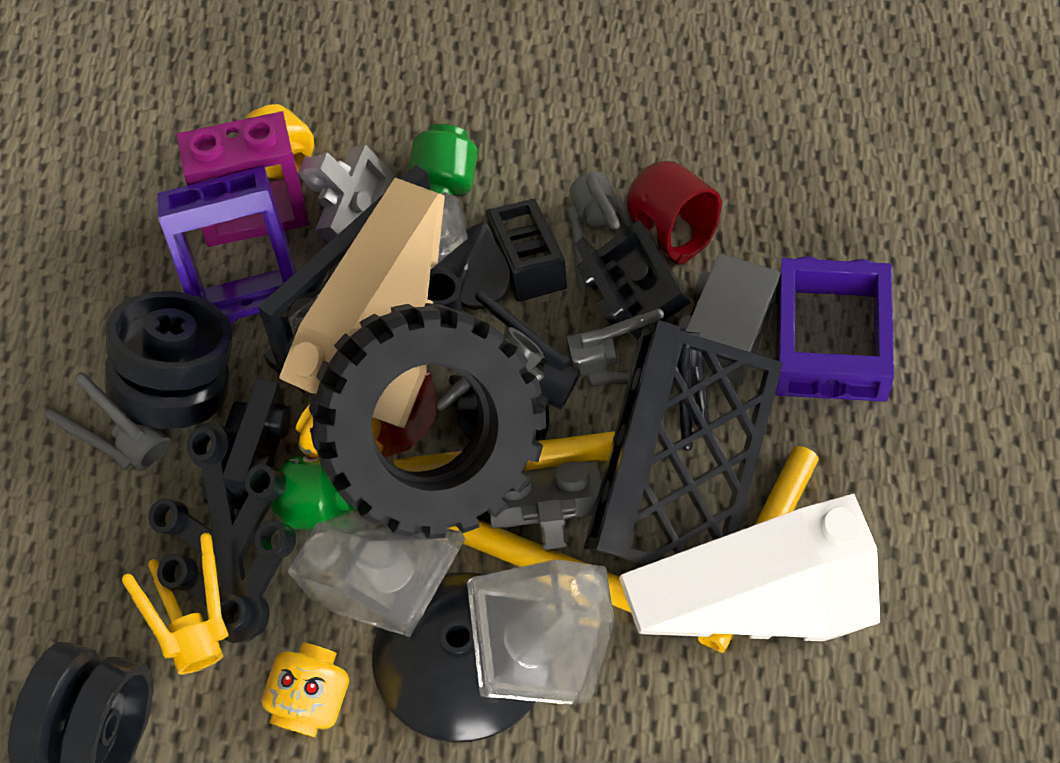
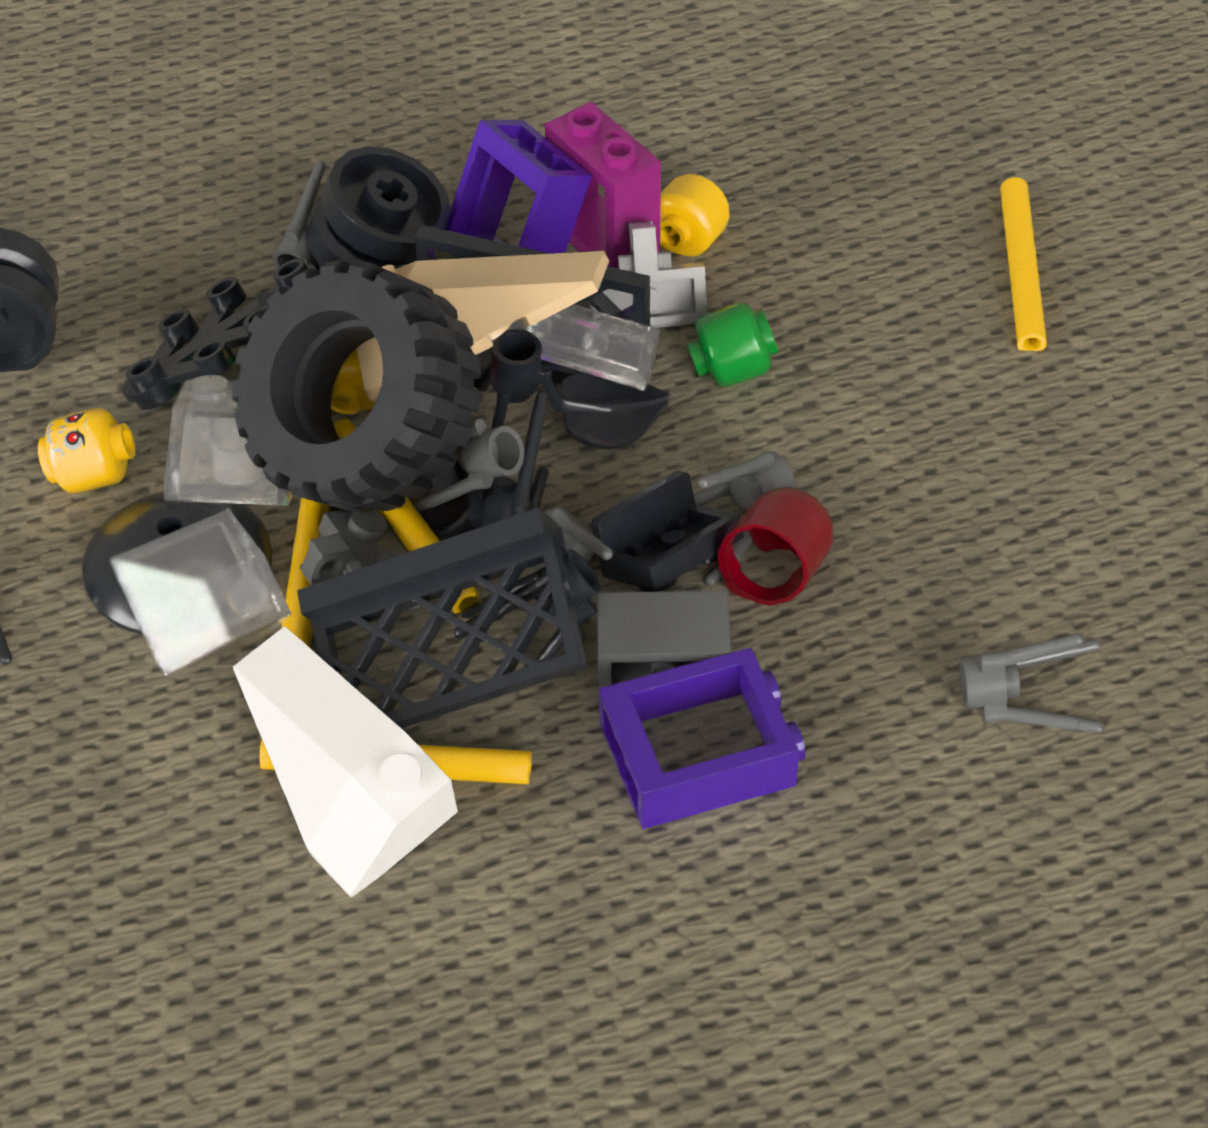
camera: 65 degrees right, 10 degrees down
(189, 638) = (108, 354): yellow plant -> none
(535, 275) = (634, 456): black slope -> none
(850, 133) = (994, 677): none -> plant

